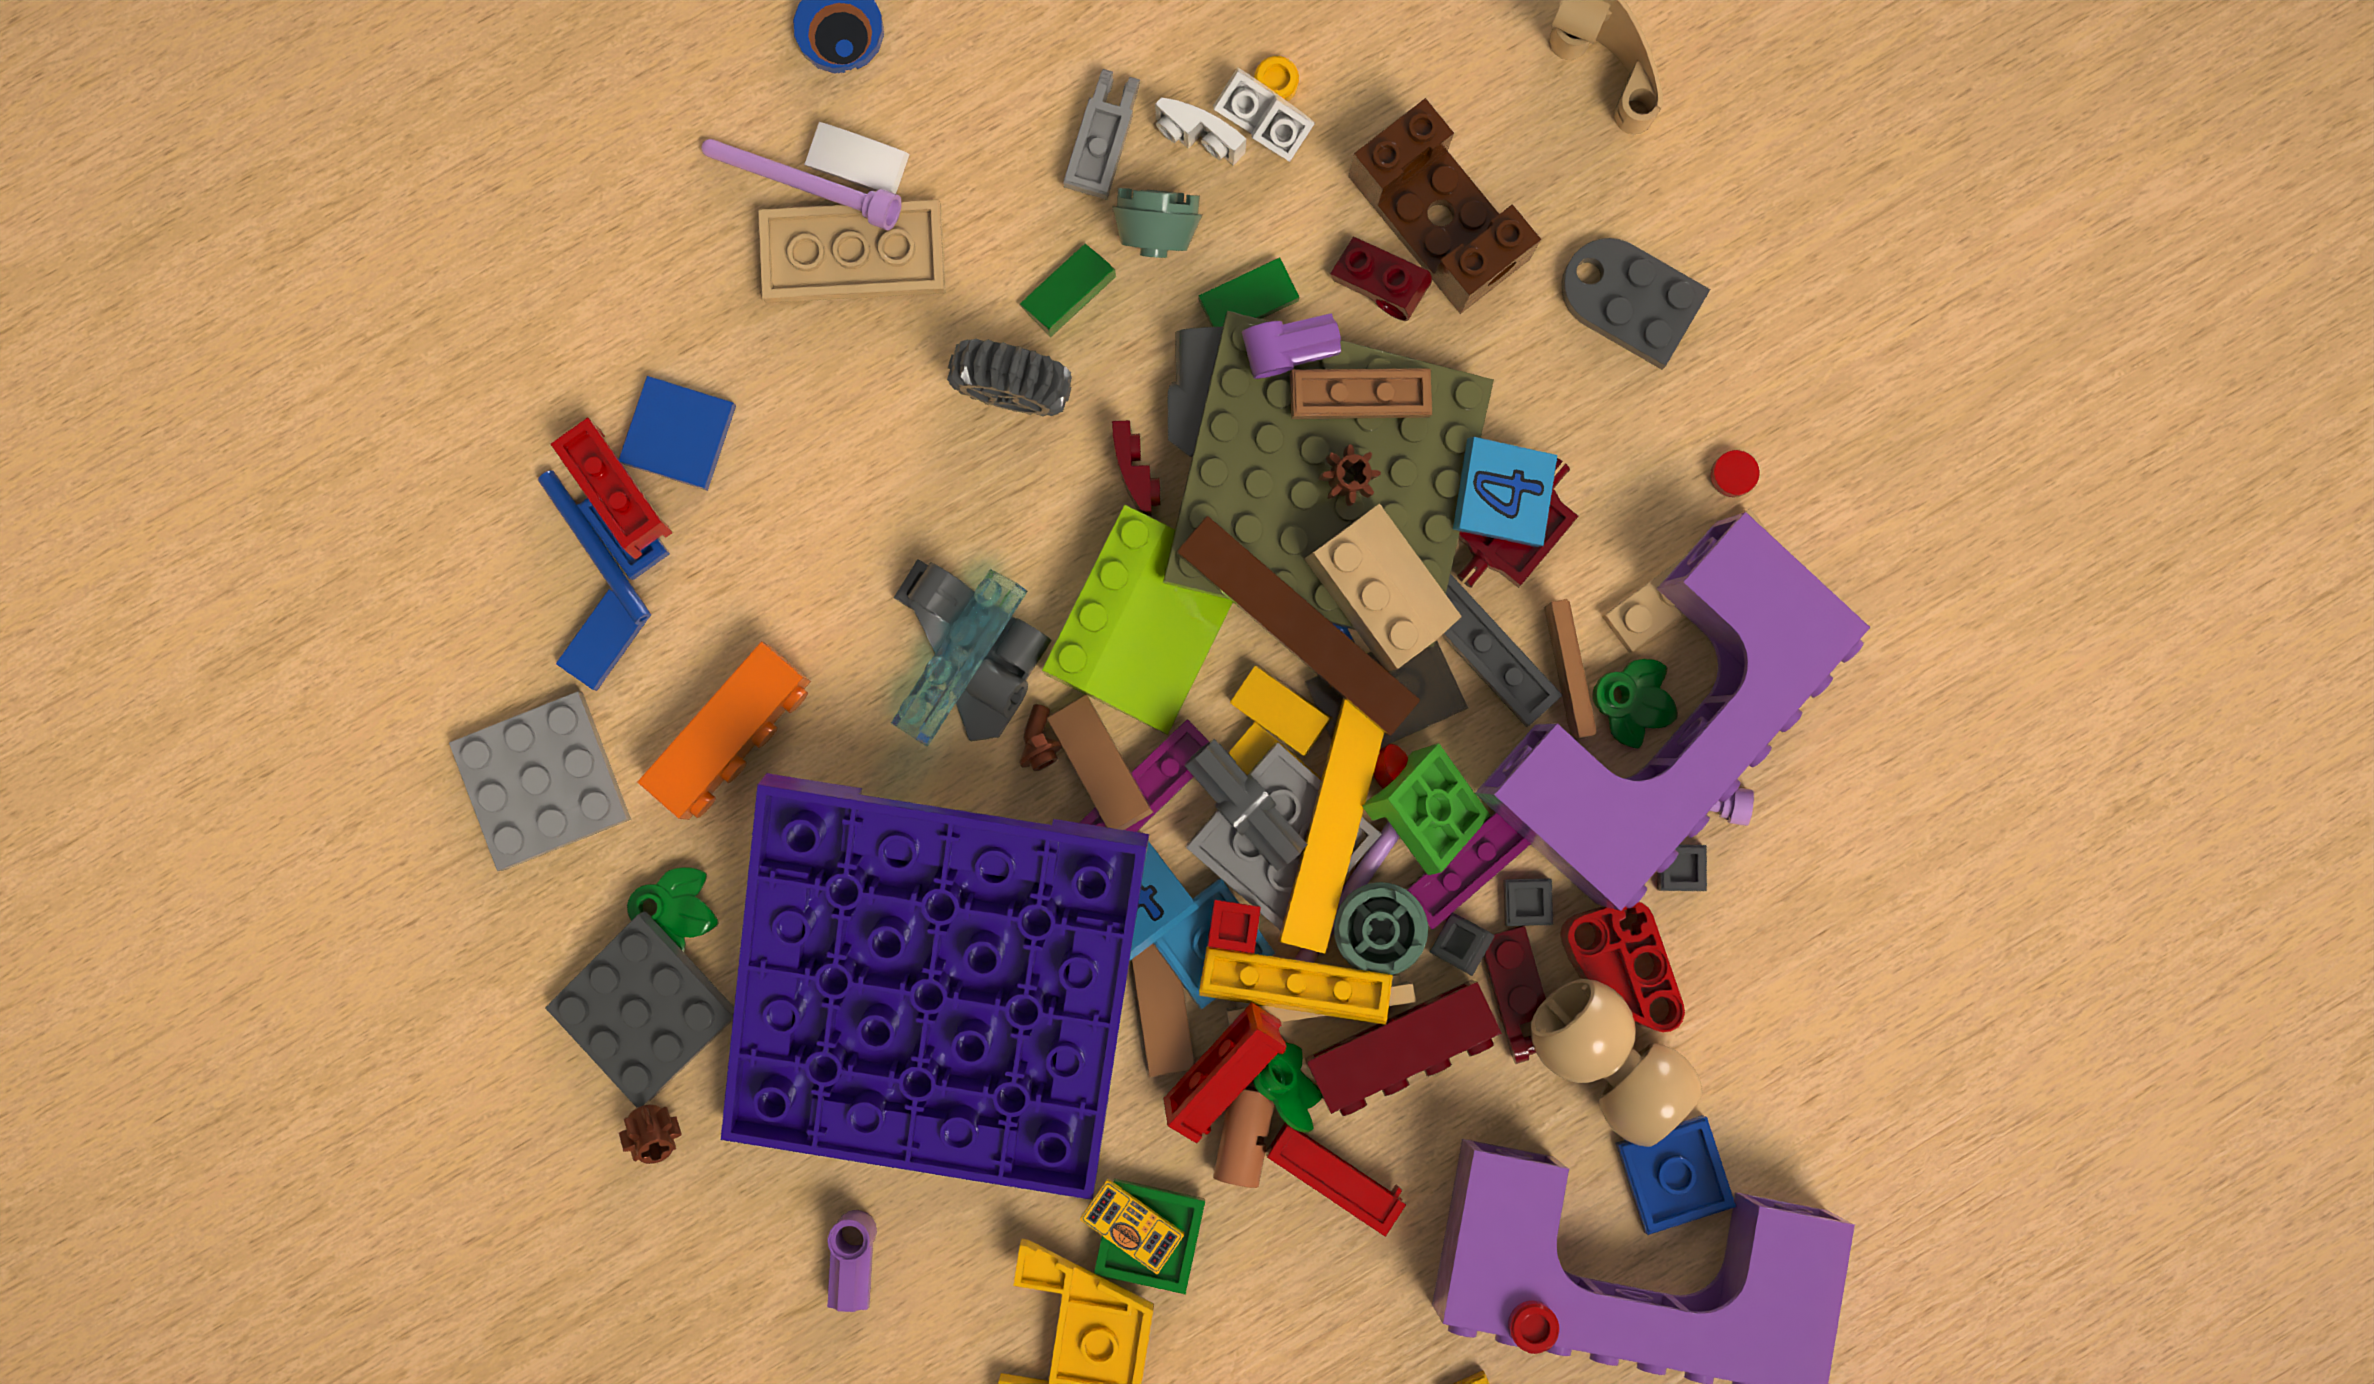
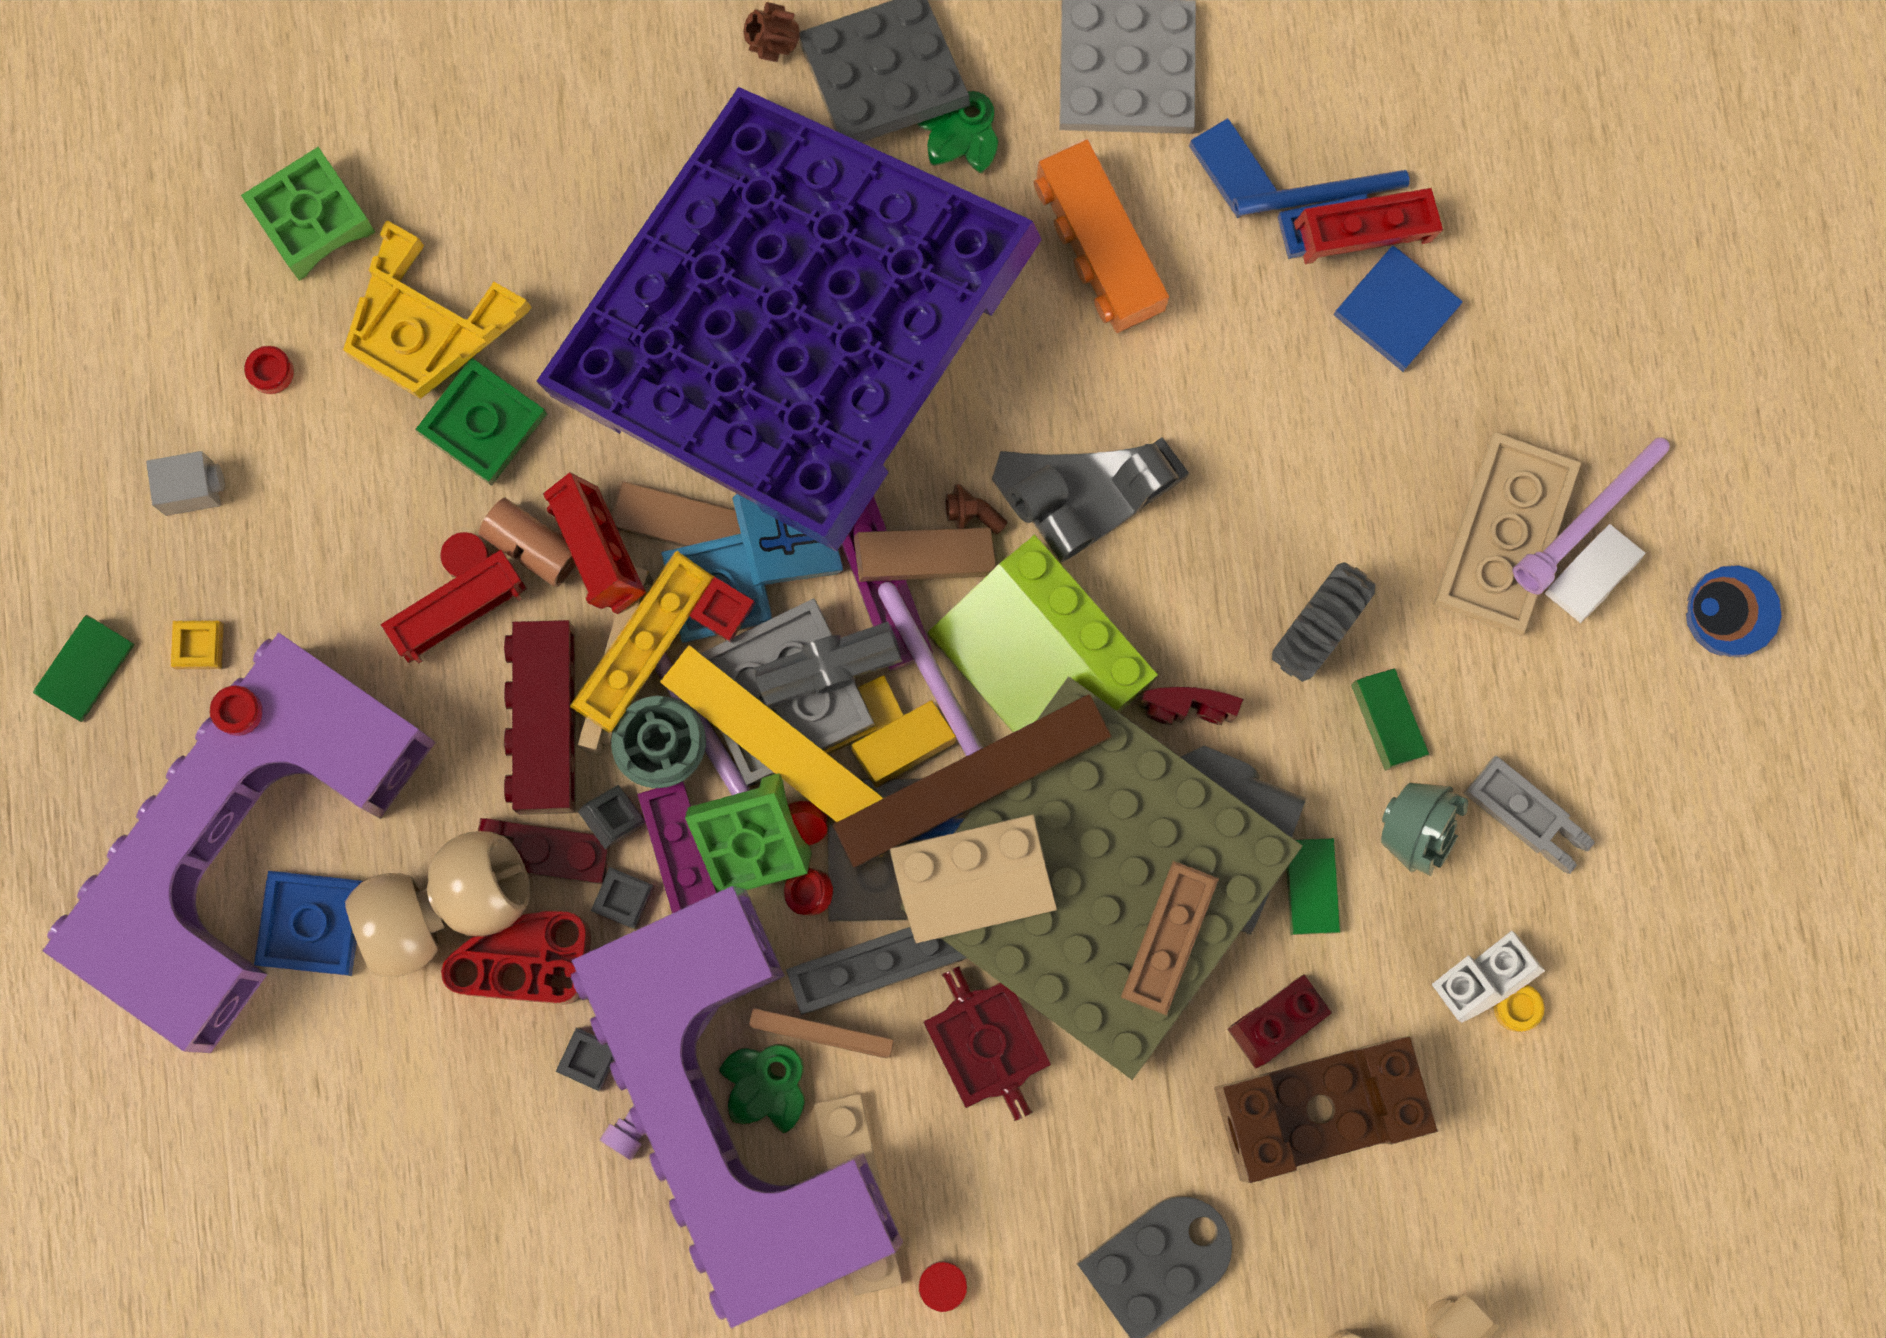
camera: 110 degrees right, 5 degrees down
(851, 1264) = (579, 156): medium lavender piece -> none
(959, 657) = (1080, 469): clear light blue plate -> none
(1132, 1226) = (496, 406): tile -> none
(1188, 123) = (1509, 897): white slope -> none
(1209, 708) = (929, 668): none -> lavender piece
(1278, 346) = (1245, 874): medium lavender piece -> none
(1281, 1192) = (462, 553): none -> red tile
(1289, 1088) = (553, 599): green plate -> none
(1361, 479) = (1089, 901): copper gear -> none
(1452, 734) = (809, 893): none -> red tile
(1505, 492) = (1017, 1040): dark azure tile -> none

